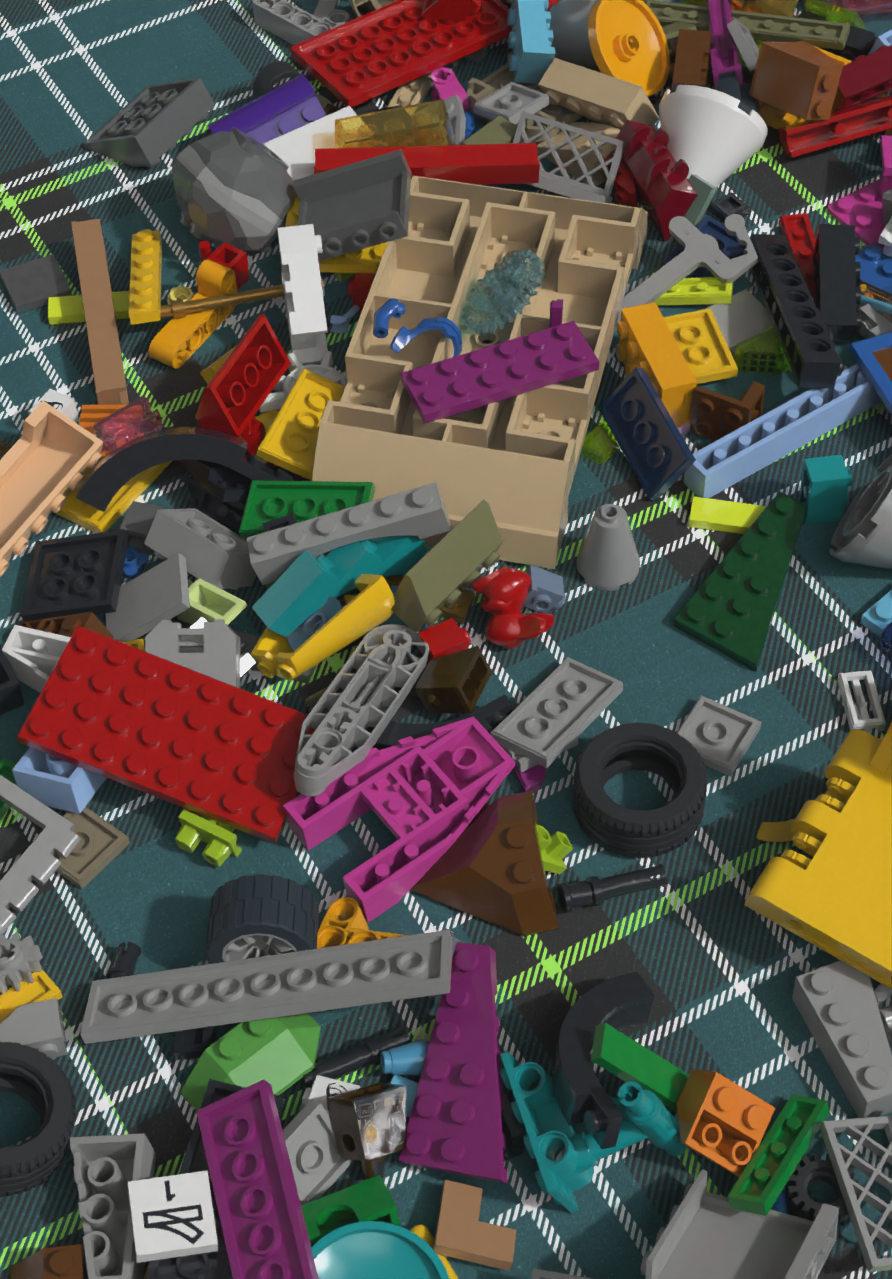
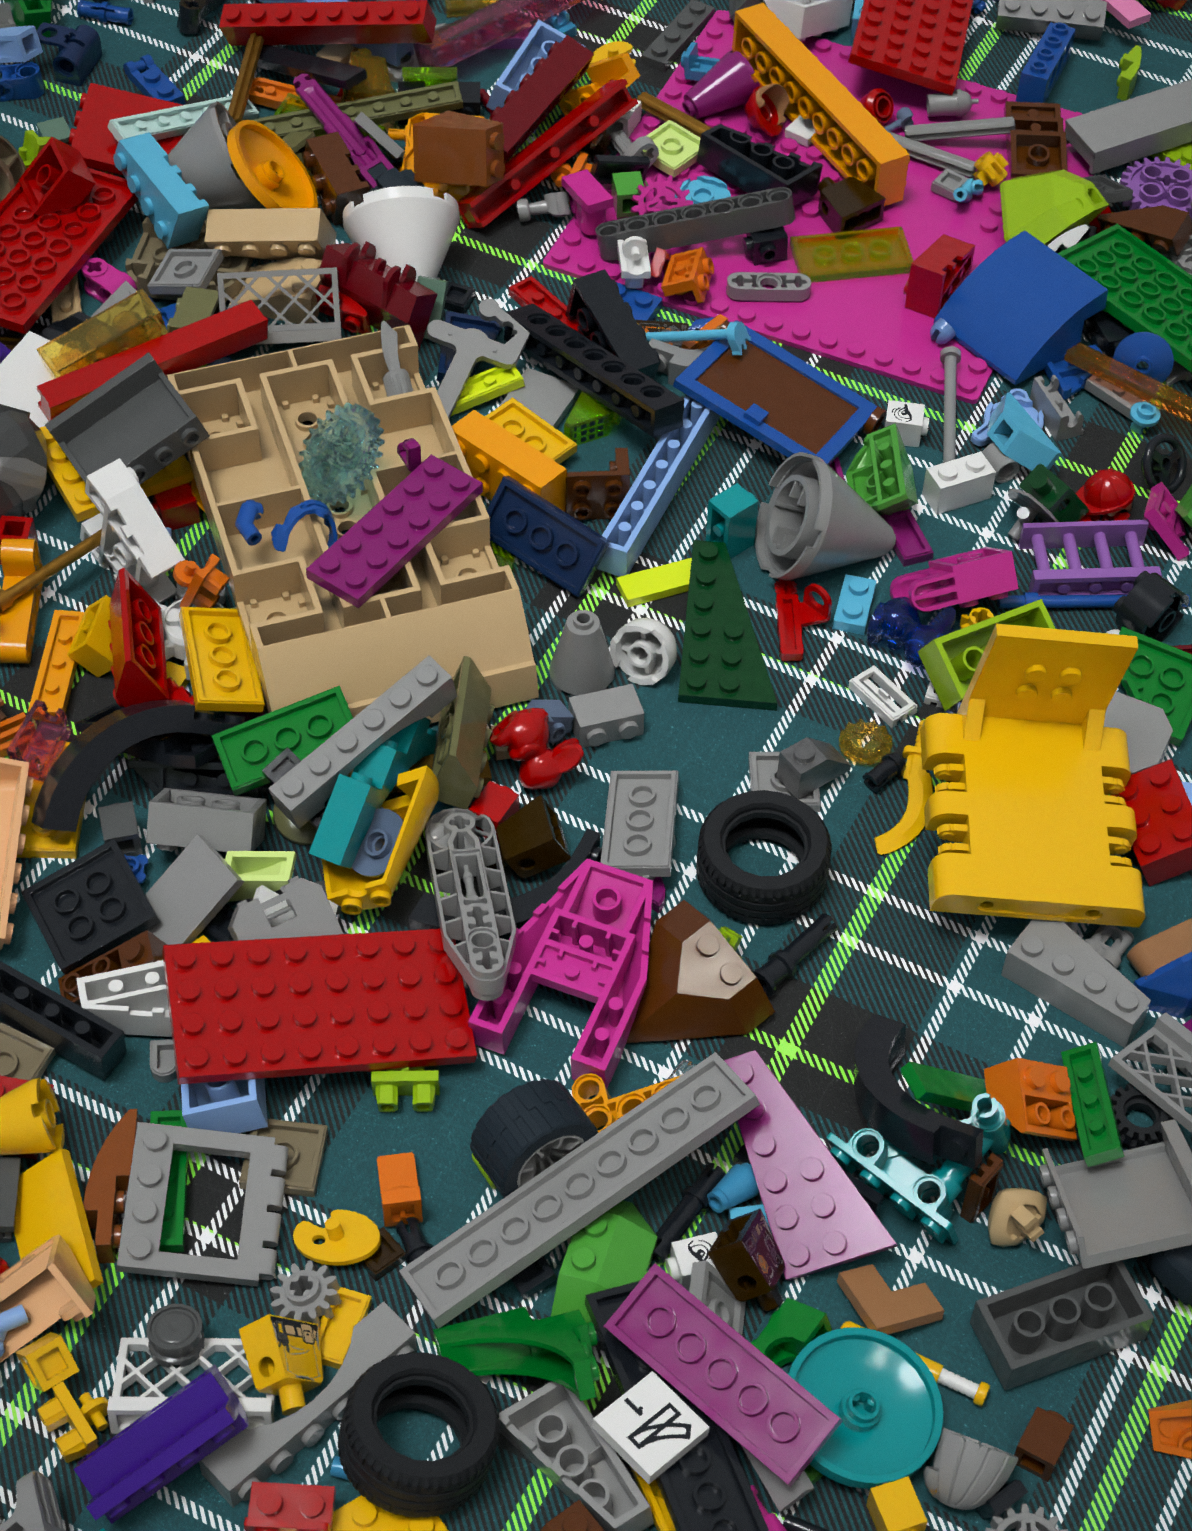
camera: 35 degrees left, 0 degrees up
(76, 935) = (347, 1239): none -> yellow piece
(93, 960) = (385, 1258): none -> dark brown tile
(133, 1094) = (515, 1344): none -> green arch
(143, 918) = (399, 1188): none -> orange bracket
(188, 382) = (56, 668): none -> light orange plate
(329, 354) = (203, 584): none -> orange hips
(596, 608) = (606, 715): none -> light grey brick
(602, 250) = (397, 379): none -> light grey piece
(631, 1161) = (981, 1188): none -> reddish brown tile
(635, 1216) = (1016, 1216): none -> tan piece
(667, 566) = (644, 650): none -> white cylinder
(742, 730) = (809, 766): none -> flat silver slope
(809, 767) = (890, 767): none -> black pin
(814, 745) = (873, 751): none -> clear yellow gear
(830, 594) = (794, 615): none -> red piece
(868, 159) = (554, 204): none -> light grey leg

